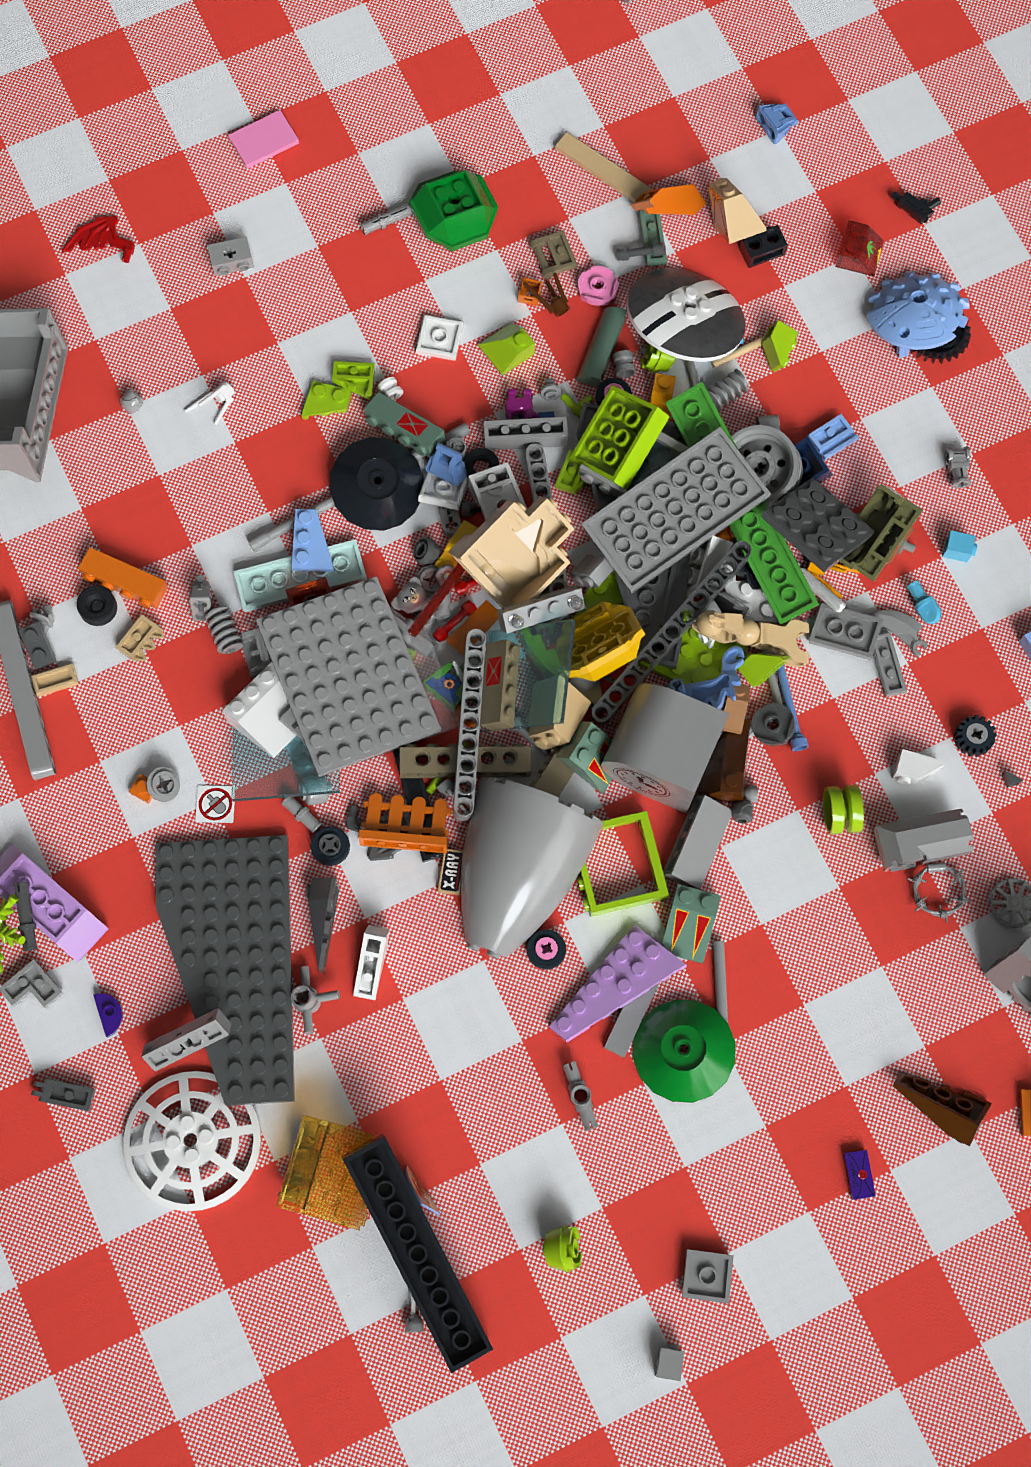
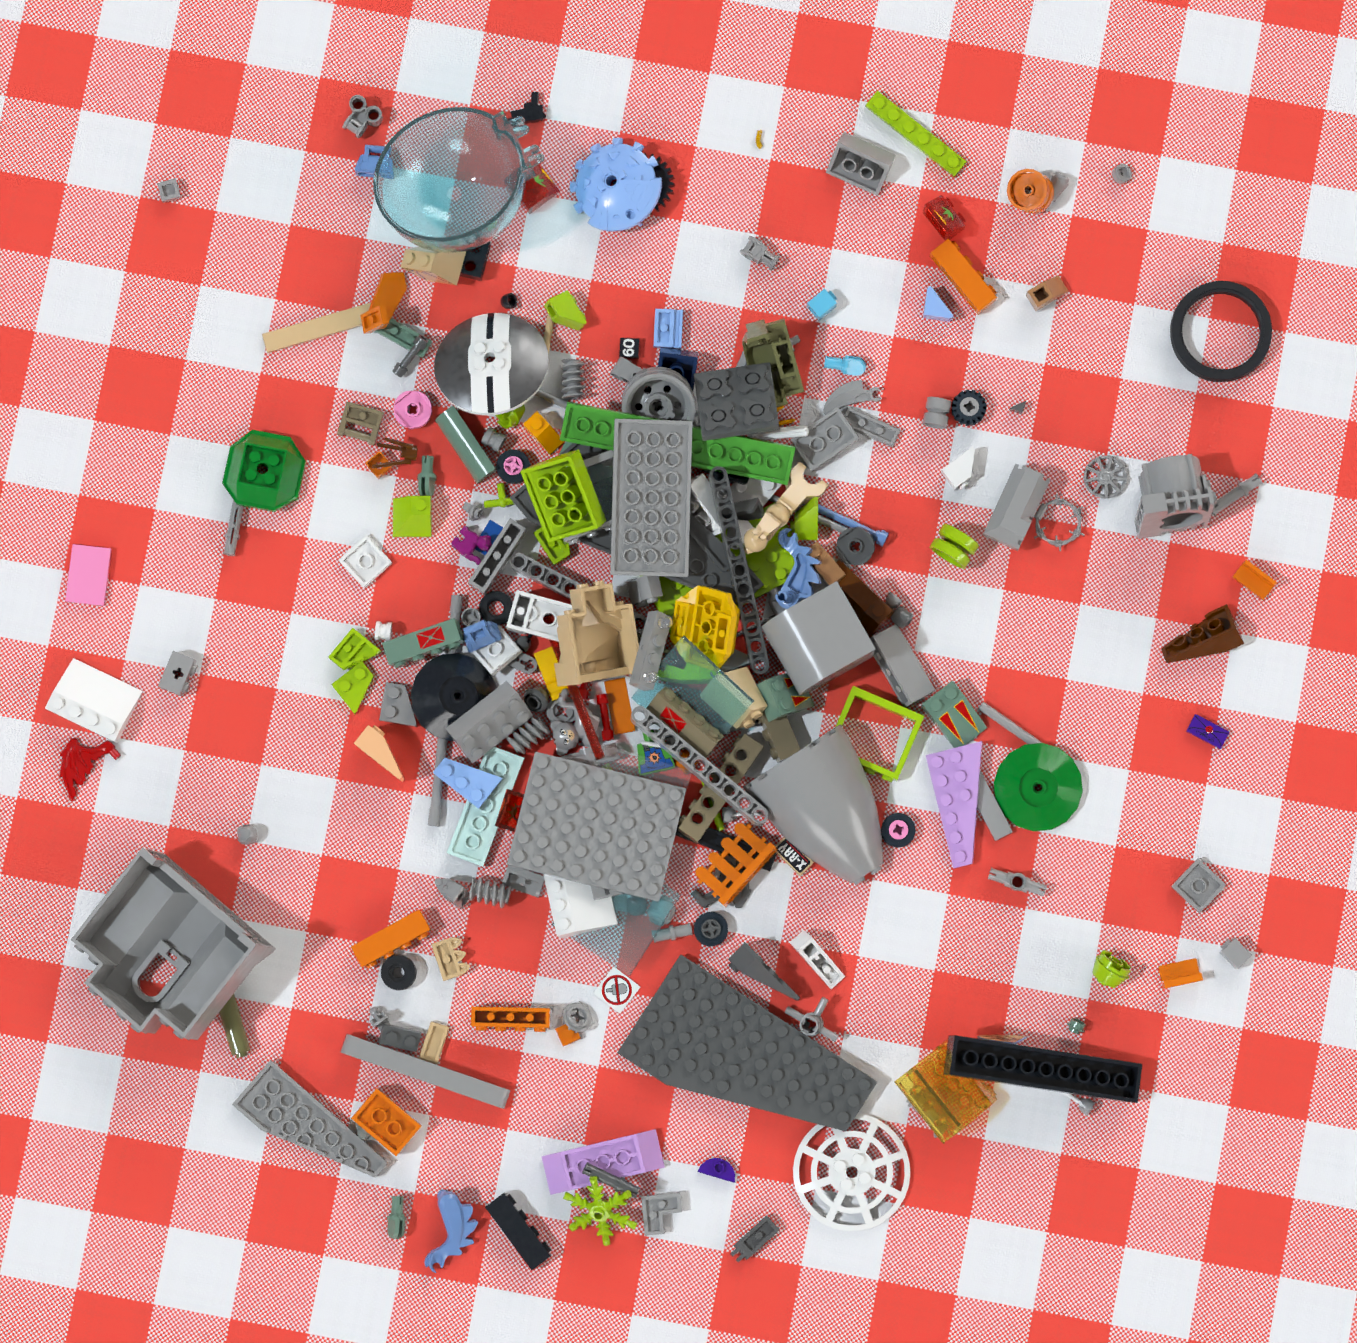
camera: 50 degrees left, 10 degrees up
(121, 725) = (510, 1017): none -> orange brick
(159, 210) = (94, 700): none -> white slope
(186, 1039) = (781, 1126): light grey piece -> none
(221, 393) = (291, 760): white plant -> none
(282, 454) = (377, 747): none -> light nougat slope
(332, 443) = (397, 706): none -> light grey wing
(374, 523) = (489, 722): none -> light grey brick
(389, 567) = (528, 735): none -> light grey piece
(485, 1256) = (1076, 1025): none -> sand green plate
(548, 334) = (426, 477): none -> sand green arm
(610, 1322) = (1179, 973): none -> orange panel
(750, 300) = (509, 301): none -> black hinge
(790, 419) = (629, 348): none -> black tile
(806, 86) = (359, 119): none -> light grey piece
(816, 167) = (454, 178): none -> clear light blue windscreen
(944, 712) = (937, 412): none -> light grey wheel

